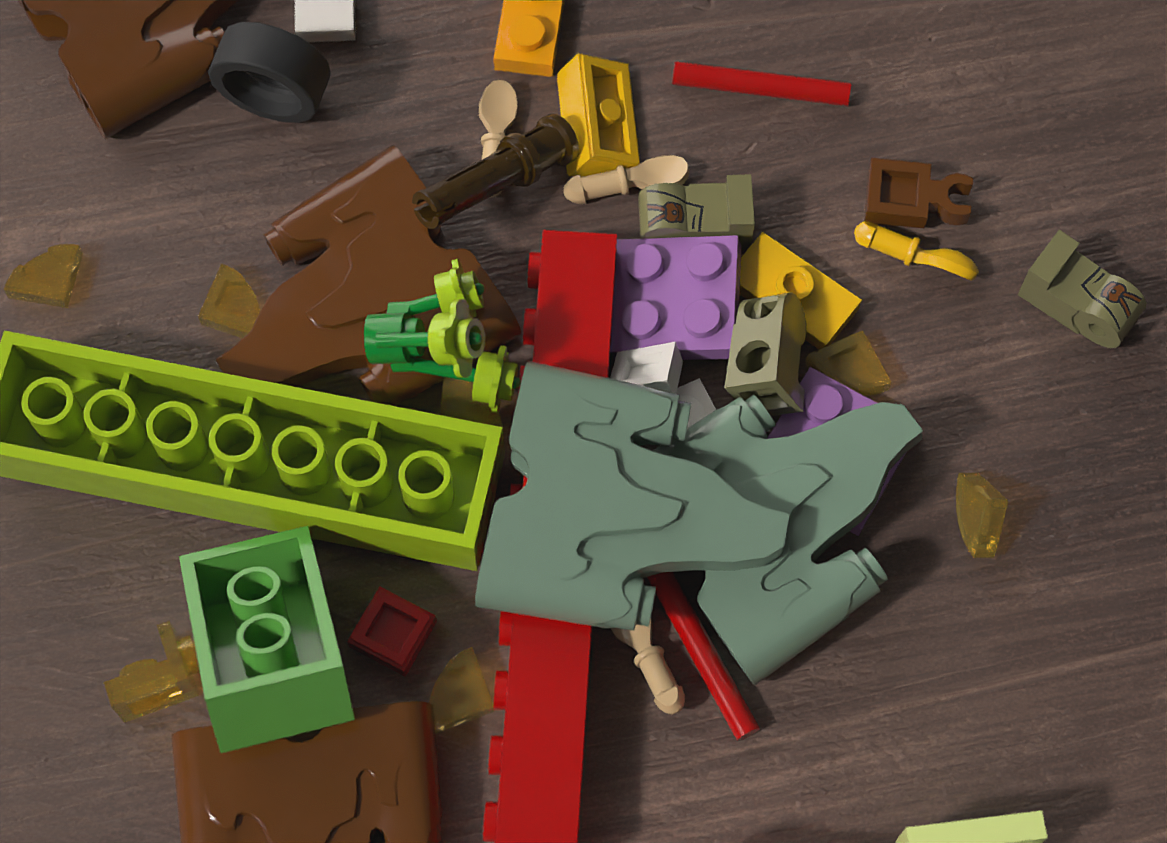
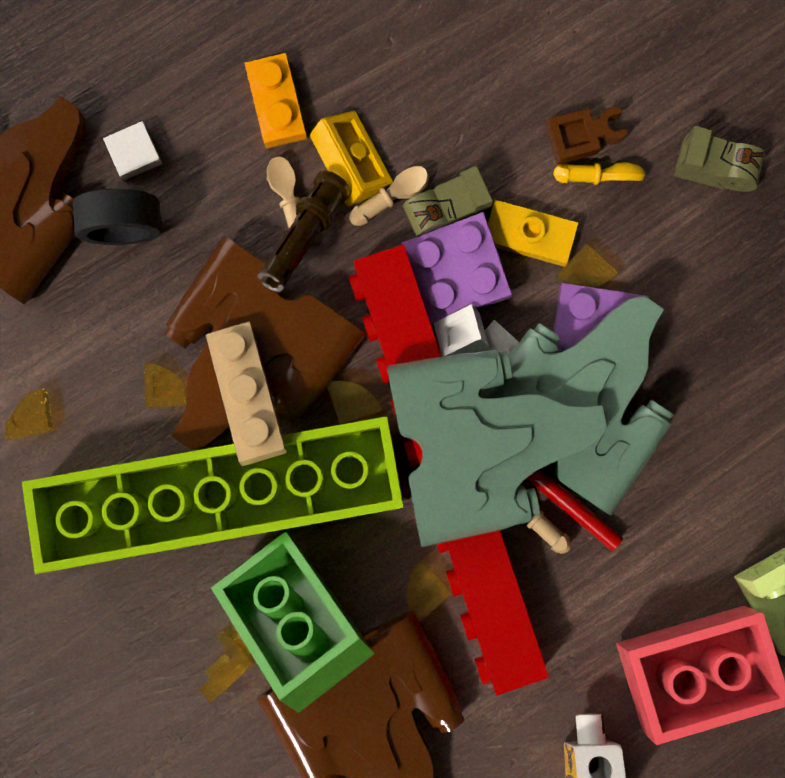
camera: 20 degrees left, 15 degrees up
(332, 333) = (245, 394): none -> tan plate
(392, 631) = (365, 568): red tile -> none
(451, 338) = (333, 375): plant -> none
(761, 83) = (450, 90): red bar -> none
(767, 353) = (534, 287): olive leg -> none
(979, 514) = (708, 340): clear yellow tile -> none

